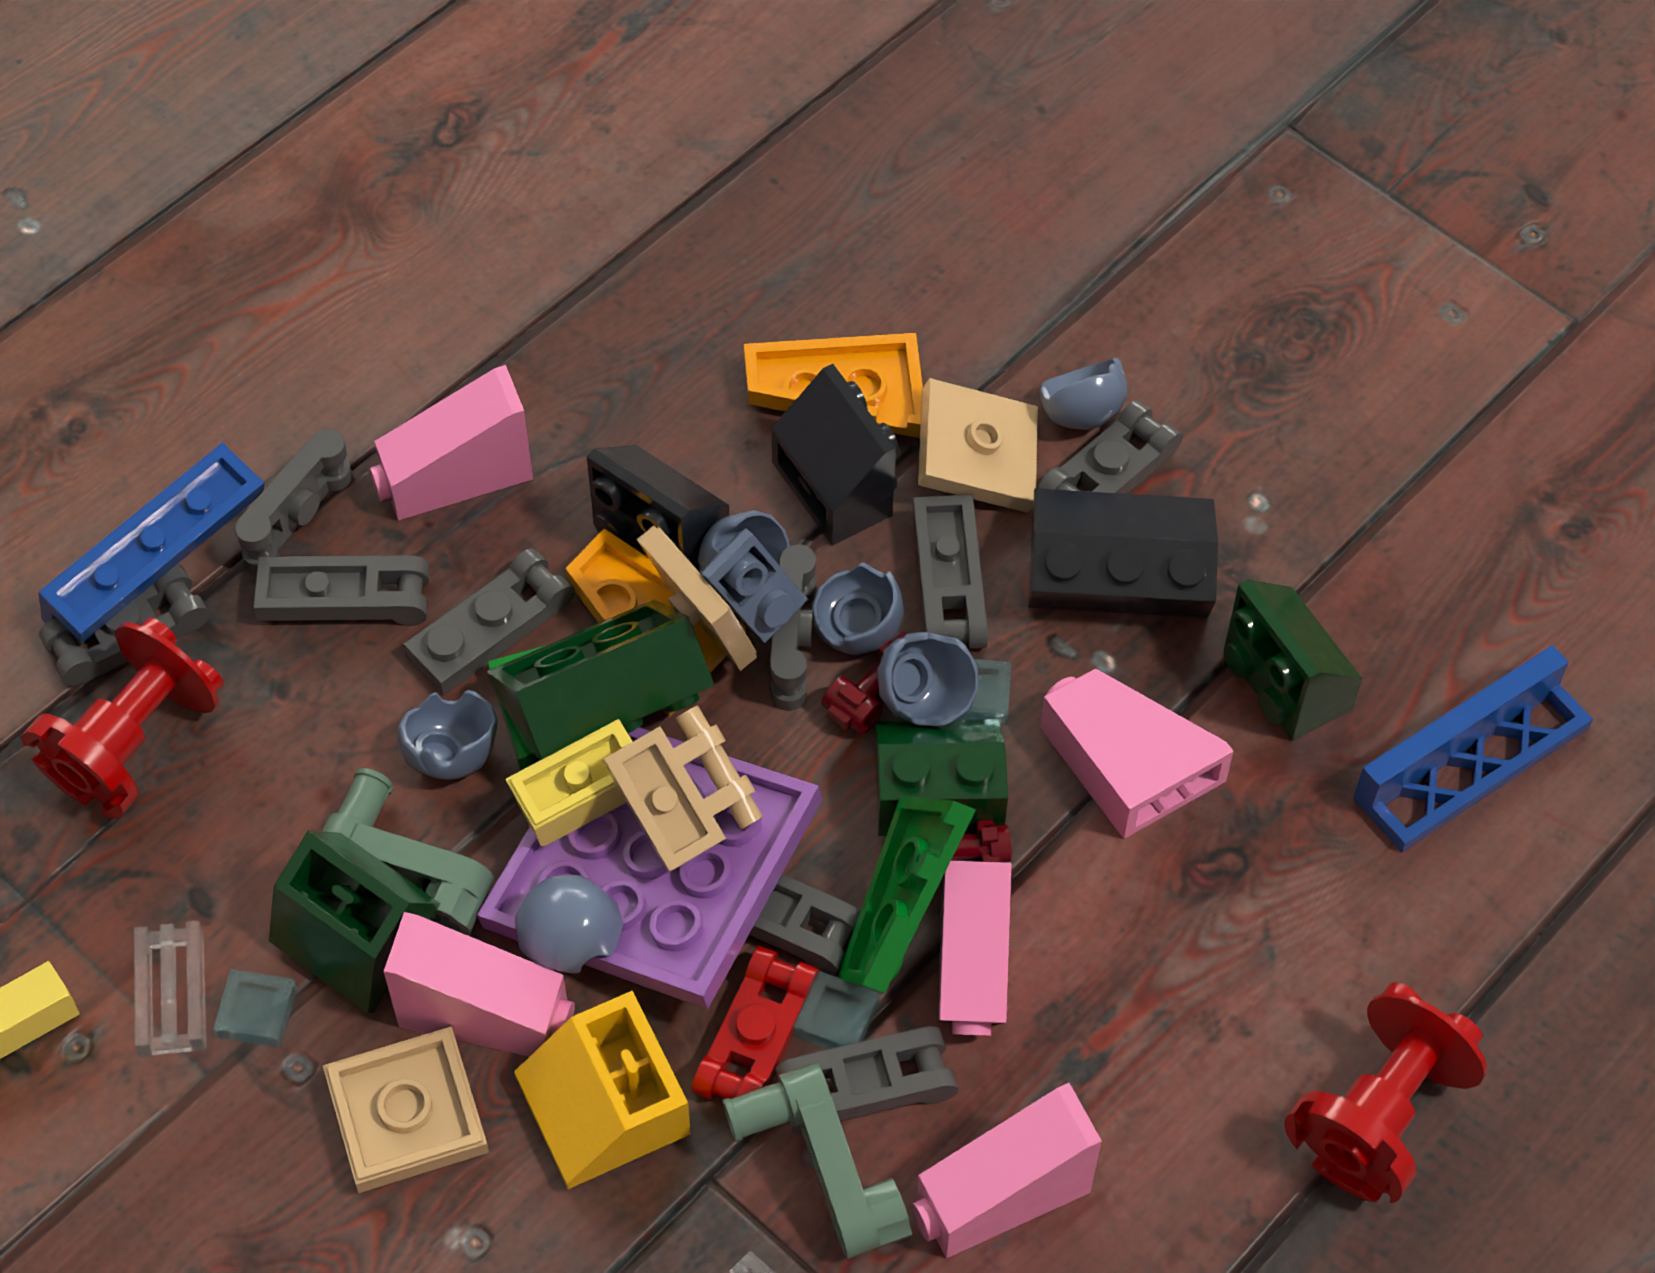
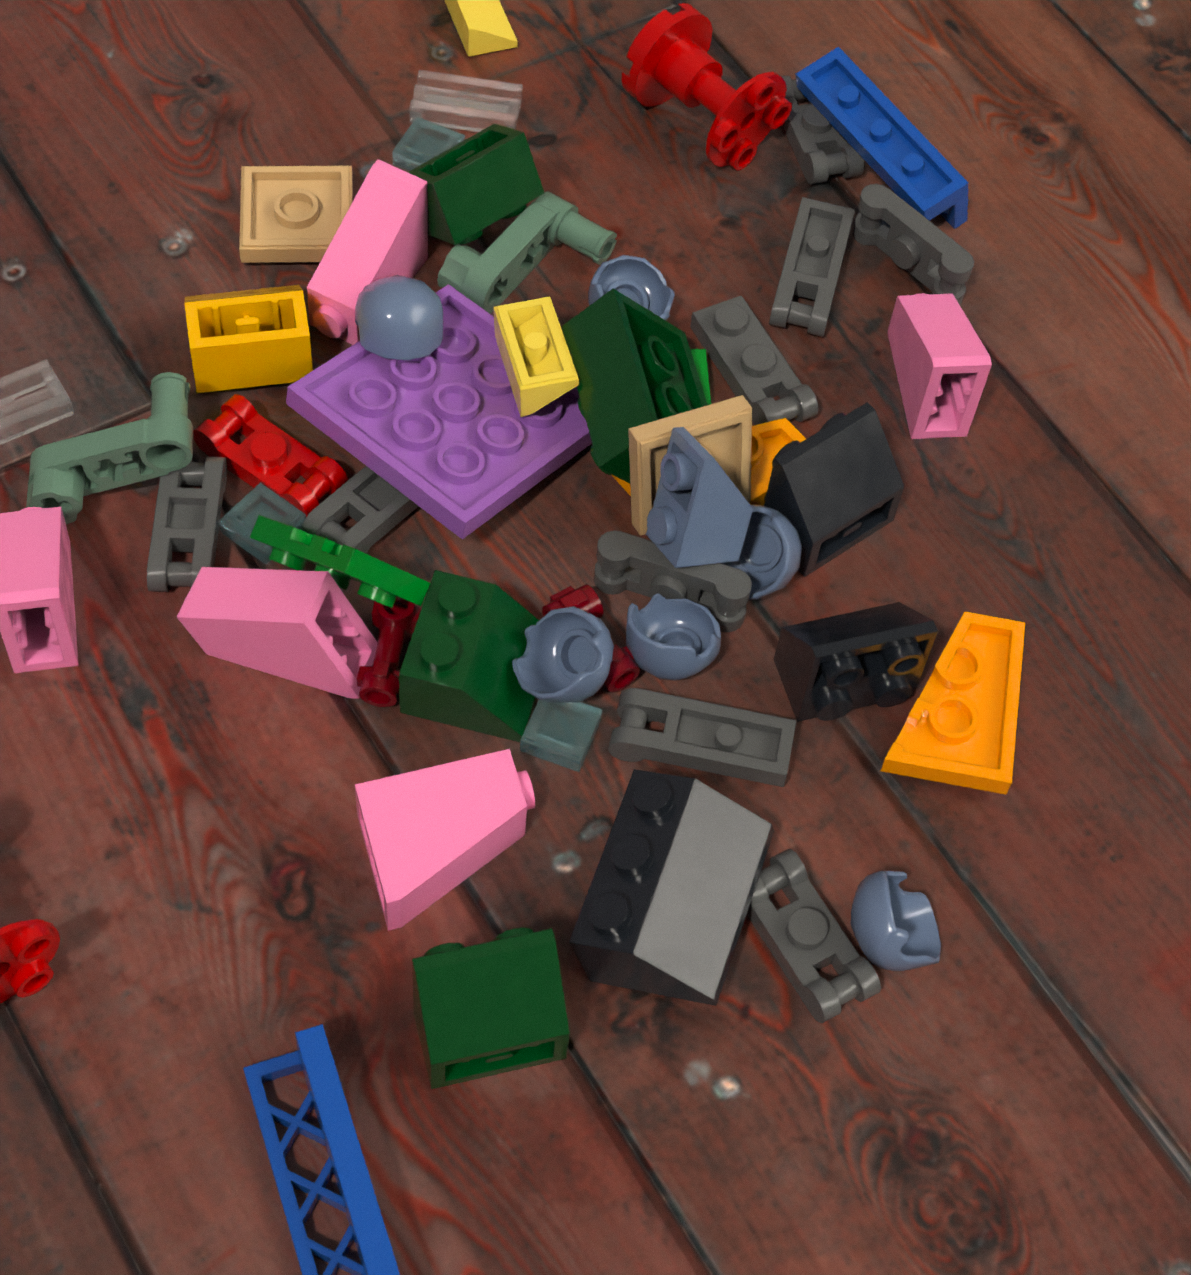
camera: 100 degrees right, 0 degrees up
(667, 800) = (478, 388): tan plate -> none
(978, 445) = (851, 801): tan plate -> none

